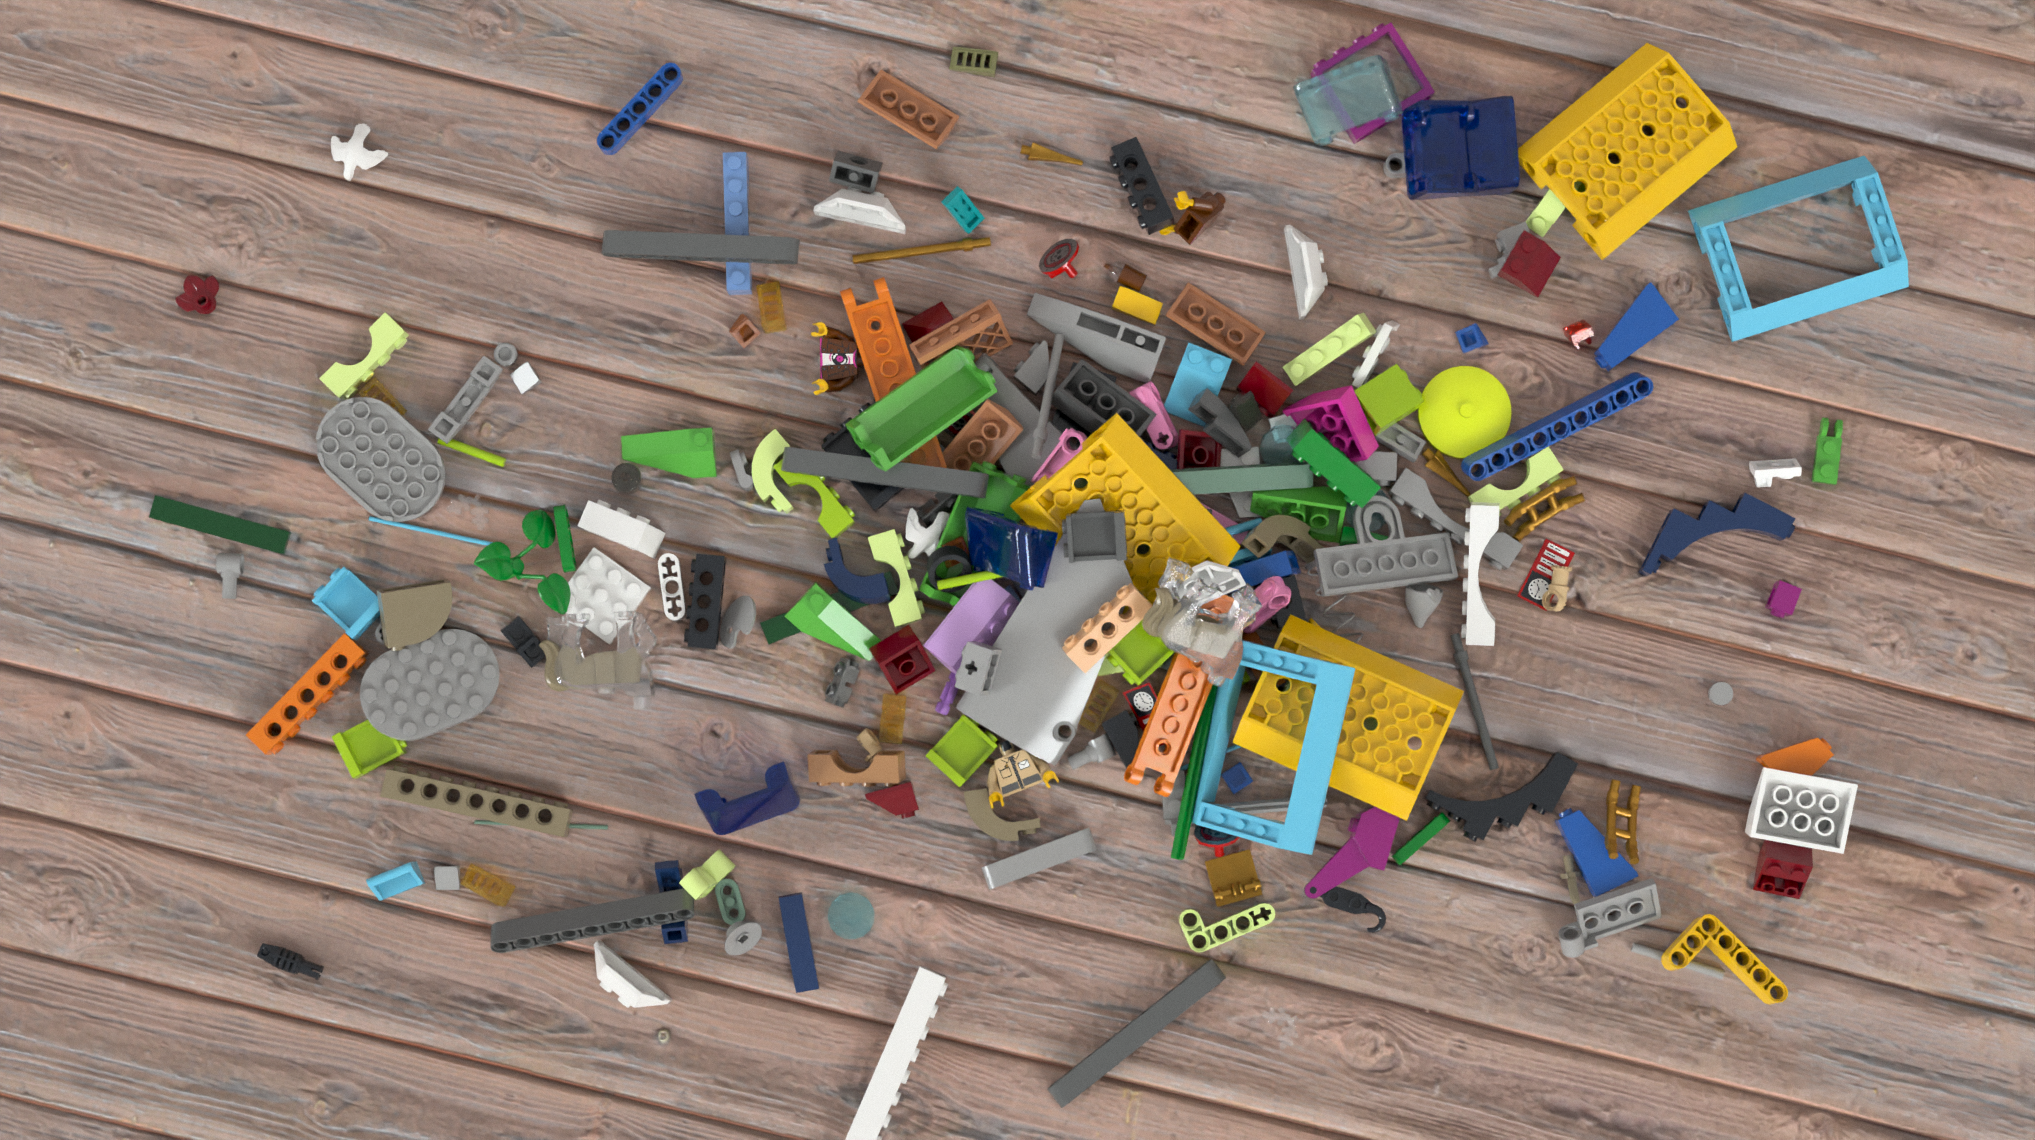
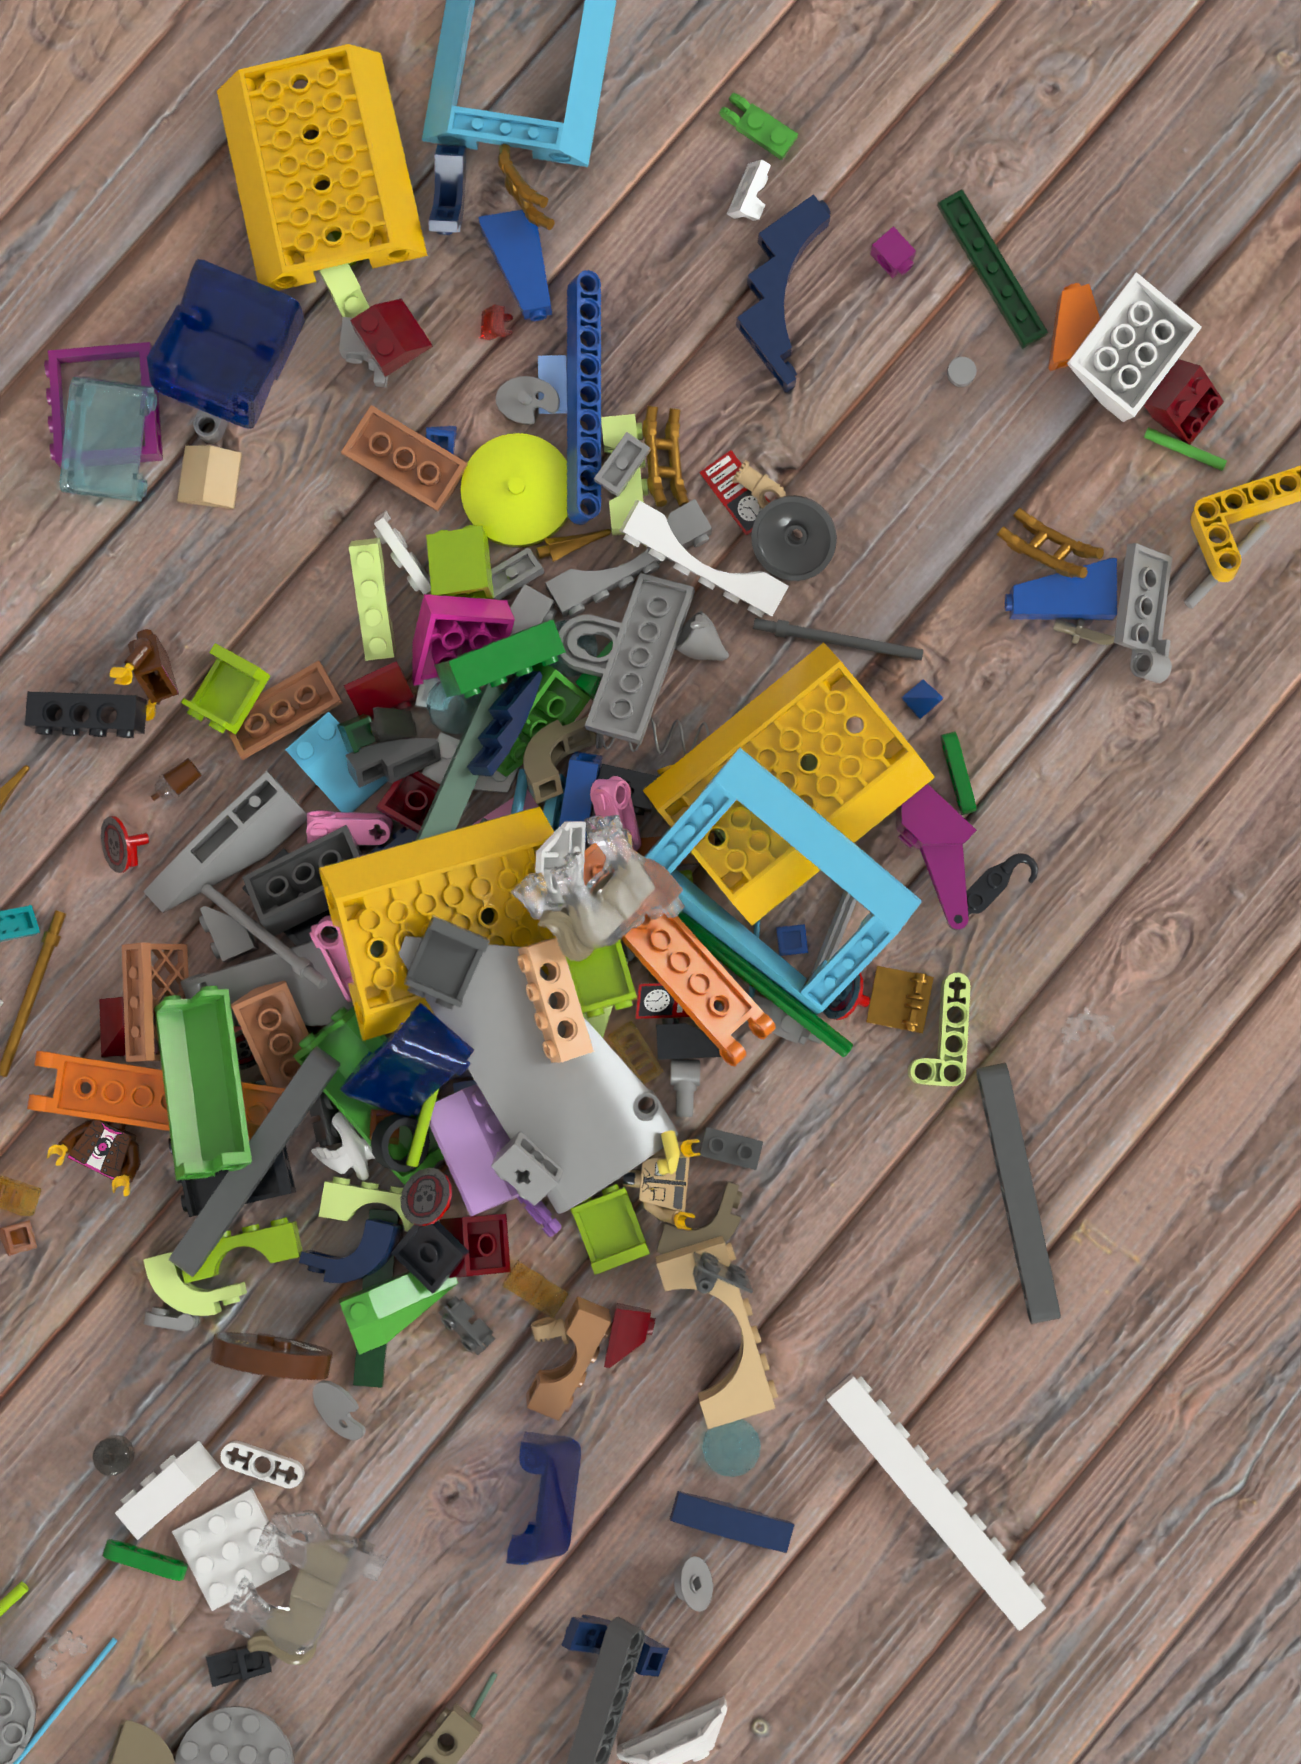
camera: 60 degrees left, 0 degrees up
(497, 562) = (129, 1658): green plant -> none
(677, 451) = (113, 1381): bright green wedge -> none
(703, 879) = (608, 1594): yellowish green beam -> none
(709, 638) = (315, 1433): black brick -> none
(731, 901) = (647, 1577): sand green plate -> none
(755, 554) = (271, 1356): none -> reddish brown piece
(882, 629) = (430, 1254): none -> black plate
(899, 904) = (745, 1387): none -> tan arch
(921, 606) = (426, 1196): none -> shield
(971, 833) = (708, 1270): none -> dark grey hinge
(1039, 858) = (772, 1204): light grey beam -> none
(1040, 767) = (672, 1153): none -> light yellow arm
(1064, 808) = (731, 1148): none -> dark grey brick
(1137, 305) = (216, 786): yellow slope -> none
(1209, 278) = (227, 691): none -> lime panel
(1226, 387) = (356, 733): none -> dark green panel
(1295, 491) = (509, 716): none -> dark blue slope
(1305, 269) = (271, 581): white wedge -> none
(1359, 184) = (209, 476): none -> tan slope
(1445, 319) = (404, 458): none -> nougat slope
(1462, 785) = (922, 698): none -> blue slope
(1479, 816) = (972, 616): black arch -> none
(1518, 630) = (785, 553): none -> dark grey dish
(1520, 479) = (622, 464): none -> light grey plate
(1530, 380) = (518, 398): none -> light grey piece
(1555, 398) = (554, 371): none -> light blue tile
(1659, 250) = (449, 189): none -> dark blue arch
(1681, 310) = (522, 192): none -> pearl gold piece
(1748, 887) = (1185, 449): none -> bright green bar
(1810, 678) = (992, 268): none -> dark green tile

